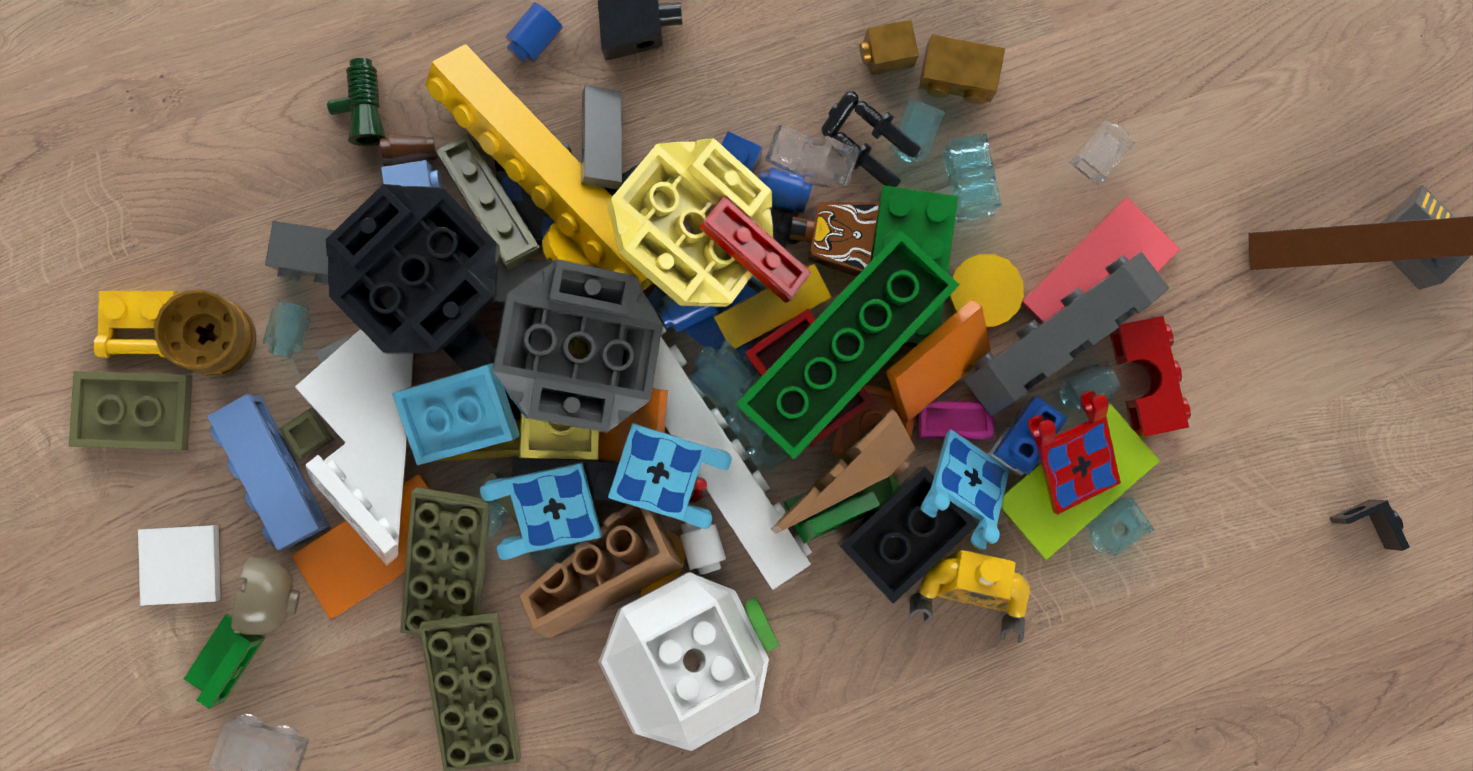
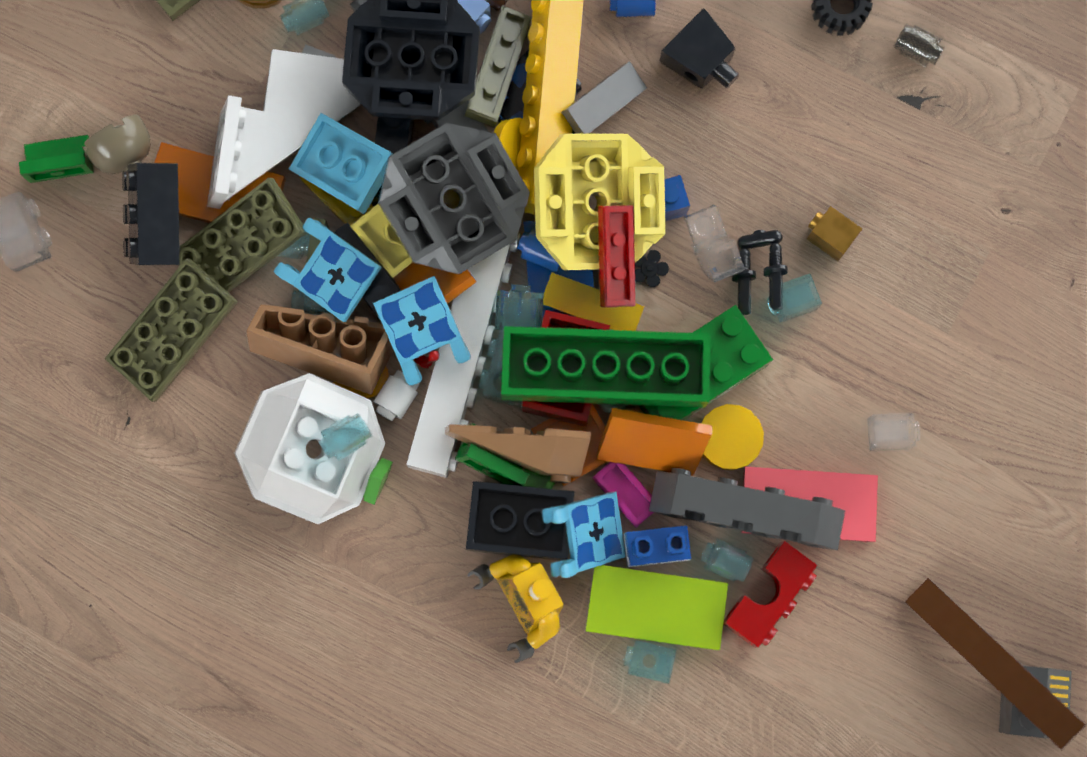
camera: 45 degrees right, 5 degrees down
(179, 565) = (95, 79): white tile -> none
(267, 472) = (202, 81): medium blue brick -> none
(306, 434) = (248, 84): olive tile -> none
(353, 624) = (151, 213): none -> black brick
(709, 627) = (345, 436): none -> clear light blue brick
(788, 190) = (677, 247): blue brick -> none
(839, 234) = (679, 304): dark orange torso -> none
(961, 69) = (861, 291): pearl gold brick -> none
(972, 177) = (795, 360): clear light blue brick -> none
(1079, 460) = (669, 590): red flag -> none

